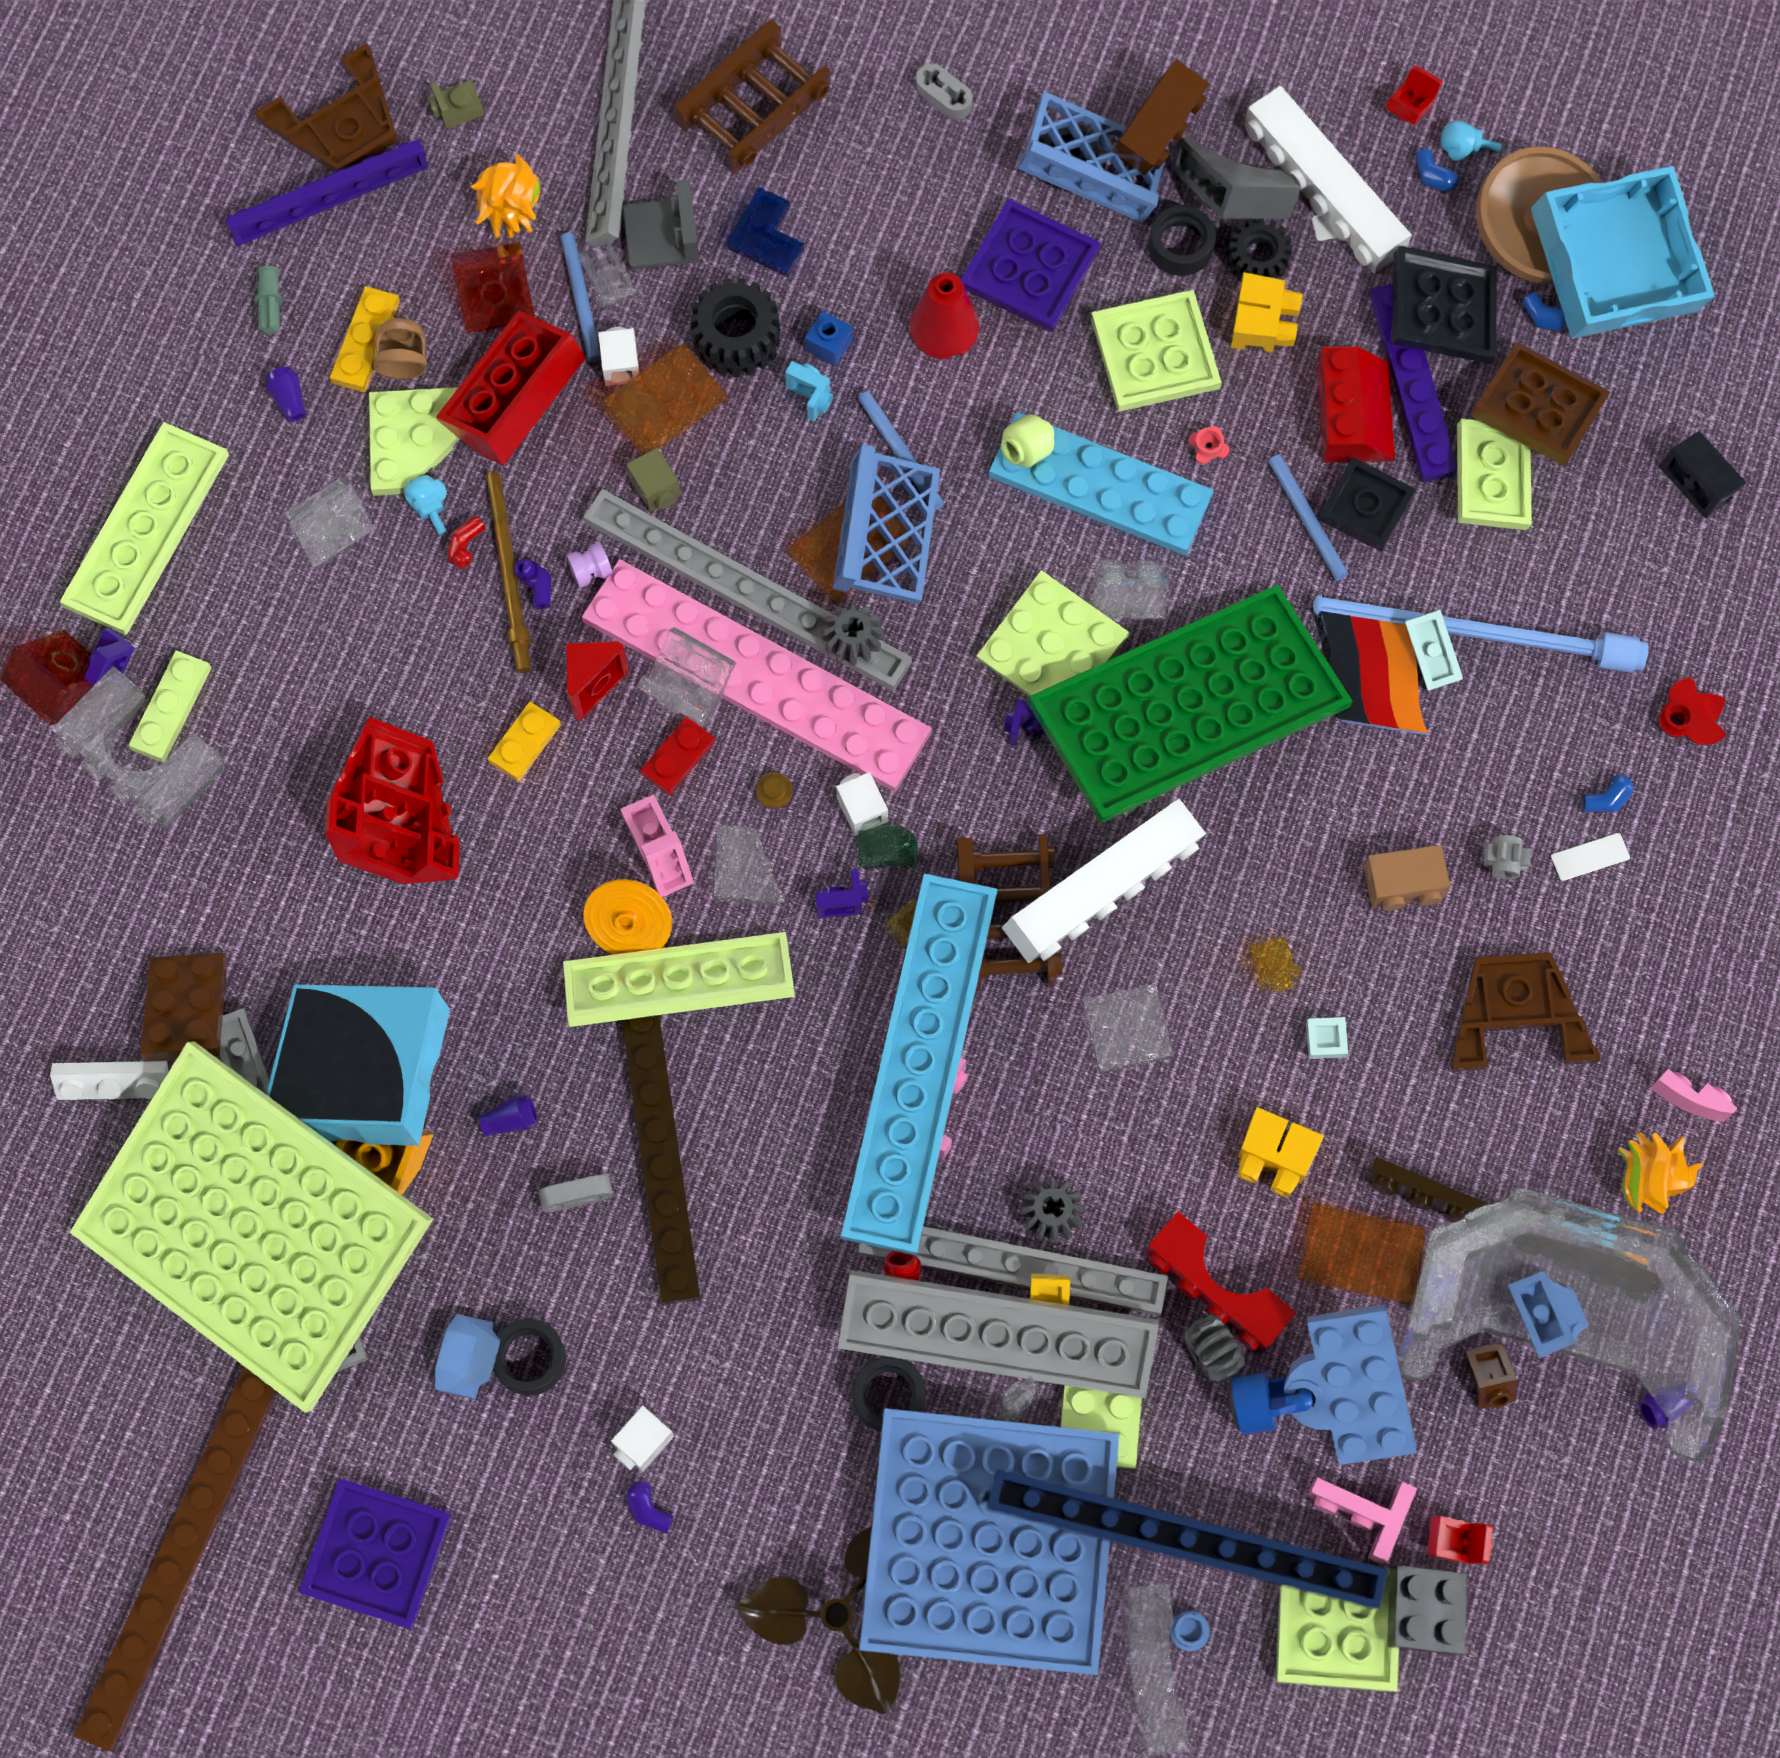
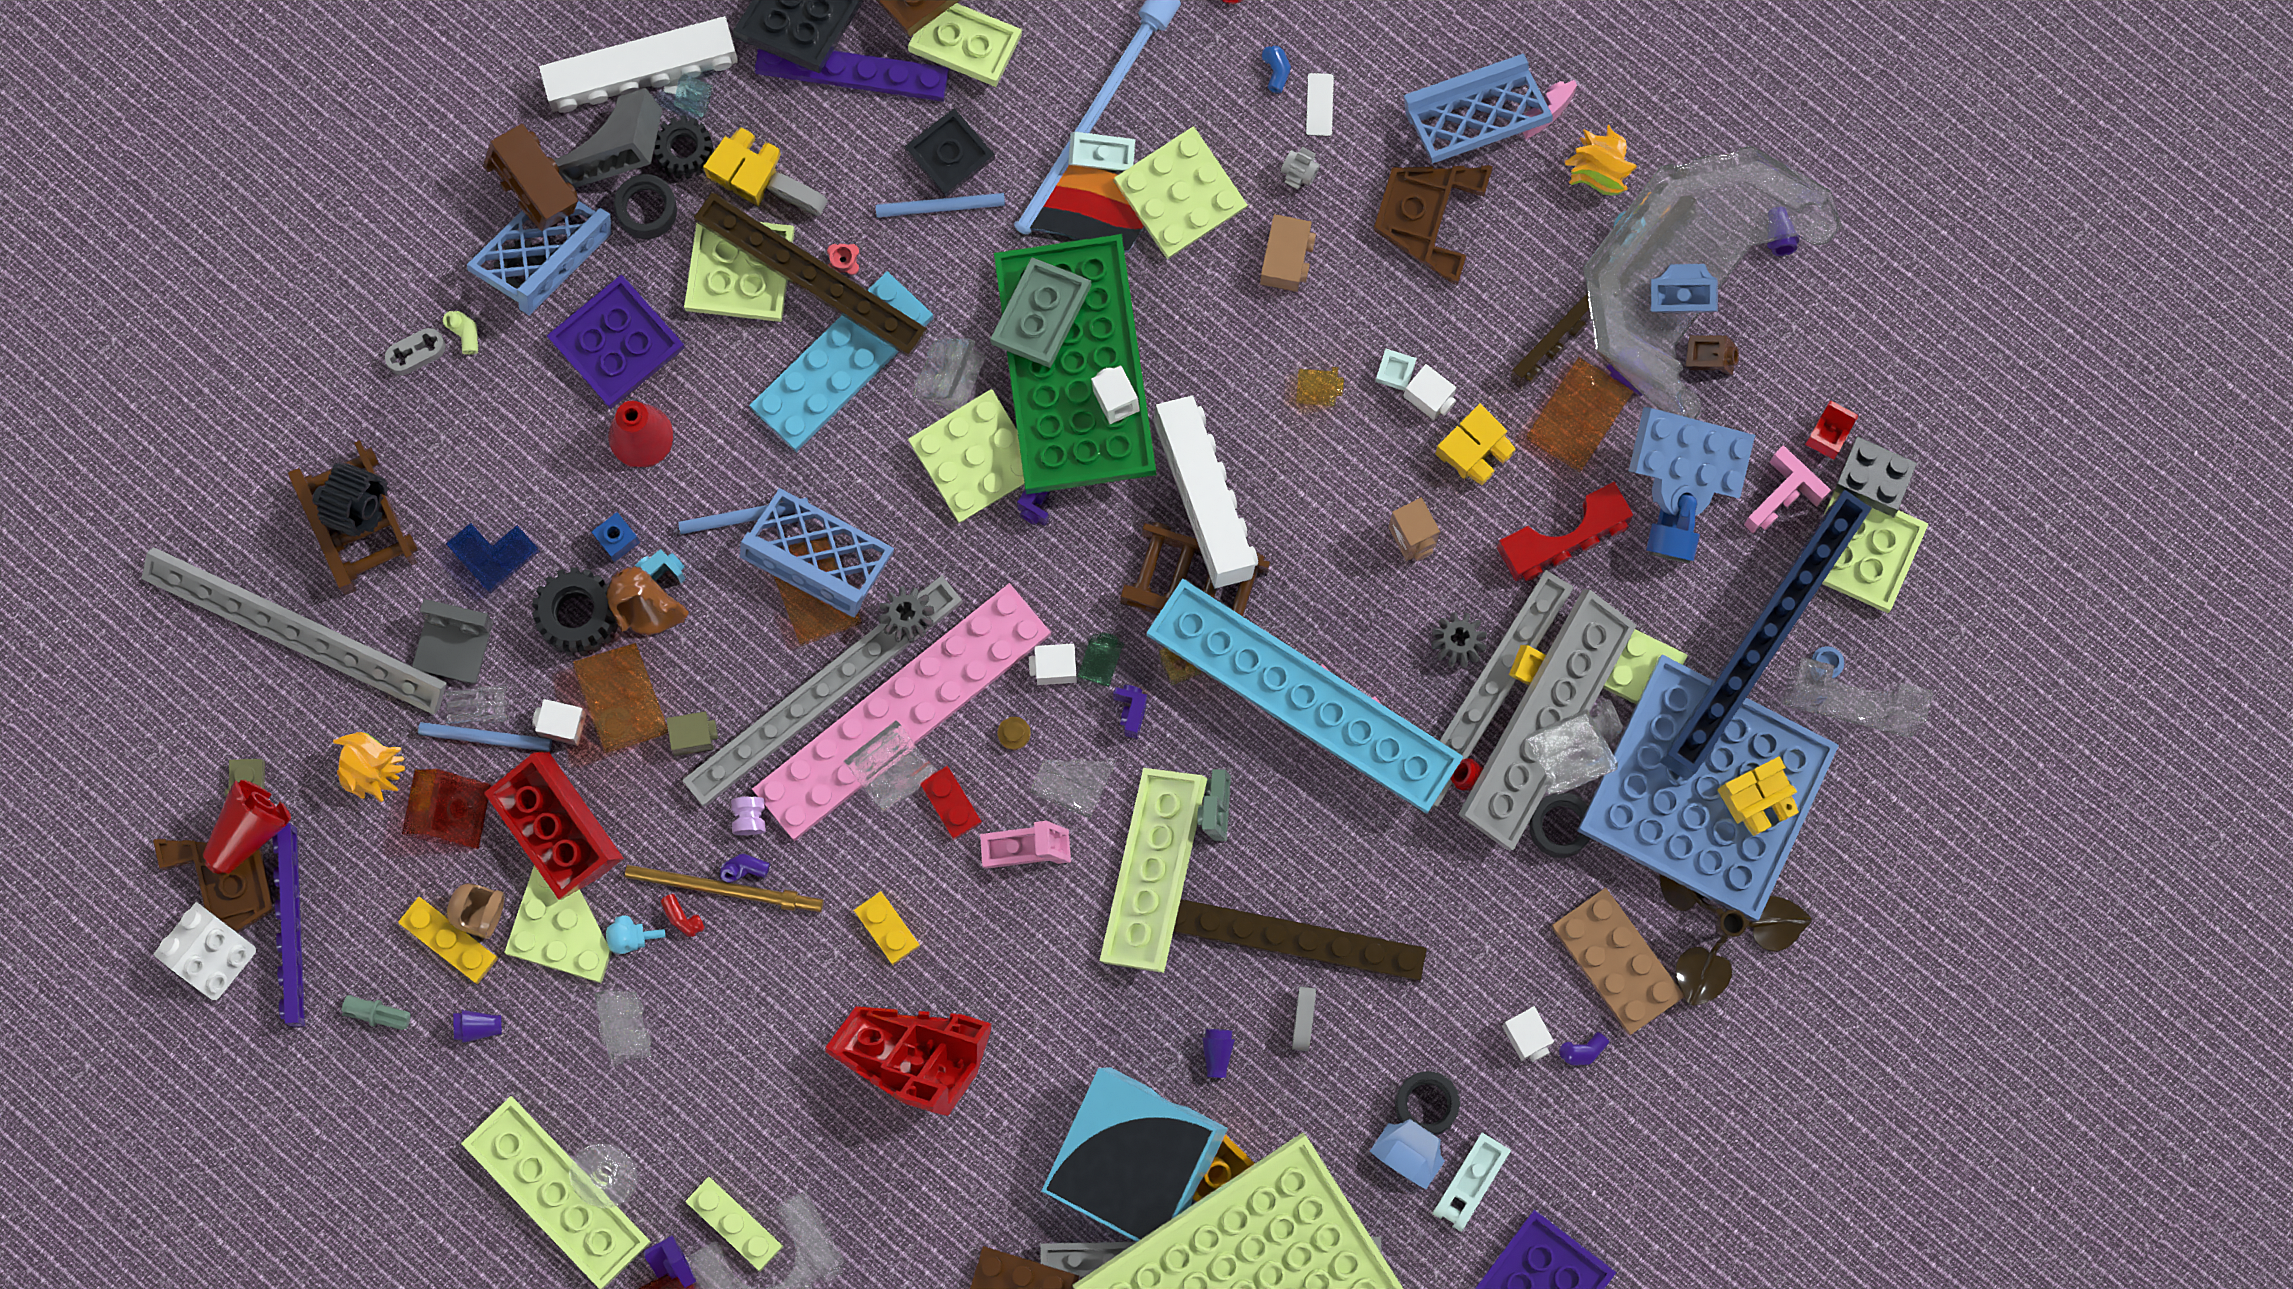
camera: 70 degrees left, 5 degrees up
(161, 573) = (594, 1185): none -> clear dish
(271, 126) = (205, 951): none -> white bracket
(404, 106) = (243, 826): none -> red cone
(461, 1435) = (1472, 1180): none -> light aqua plate
(593, 673) = (853, 849): red slope -> none
(627, 917) = (1086, 892): light orange shield -> none
(760, 75) = (350, 499): none -> black brick
(760, 1022) = (1215, 811): none -> sand green plate
(760, 1511) = (1617, 961): none -> medium nougat plate
(765, 376) = (642, 603): none -> dark orange piece
(964, 1368) = (1571, 752): none -> clear plate
(986, 126) = (465, 328): none -> yellowish green arm
(1011, 1612) = (1757, 791): none -> yellow hips
(1028, 441) = (788, 404): yellowish green head -> none
(1127, 1028) = (1329, 523): clear plate -> none
(1152, 1115) = (1414, 530): none -> medium nougat brick
(1167, 746) = (1115, 394): none -> white brick
(1174, 415) = (810, 274): none -> dark brown plate
(1213, 1349) = (1618, 556): dark grey gear -> none
(1228, 646) = (1041, 312): none -> sand green plate
(1257, 375) = (797, 194): none -> light grey beam
(1316, 1083) = (1430, 393): none -> white brick
(1317, 240) = (693, 95): none -> clear light blue plate
(1354, 406) = (857, 127): red slope -> none
(1425, 746) = (1180, 192): none -> yellowish green plate
(1672, 1002) = (1468, 91): none -> medium blue fence

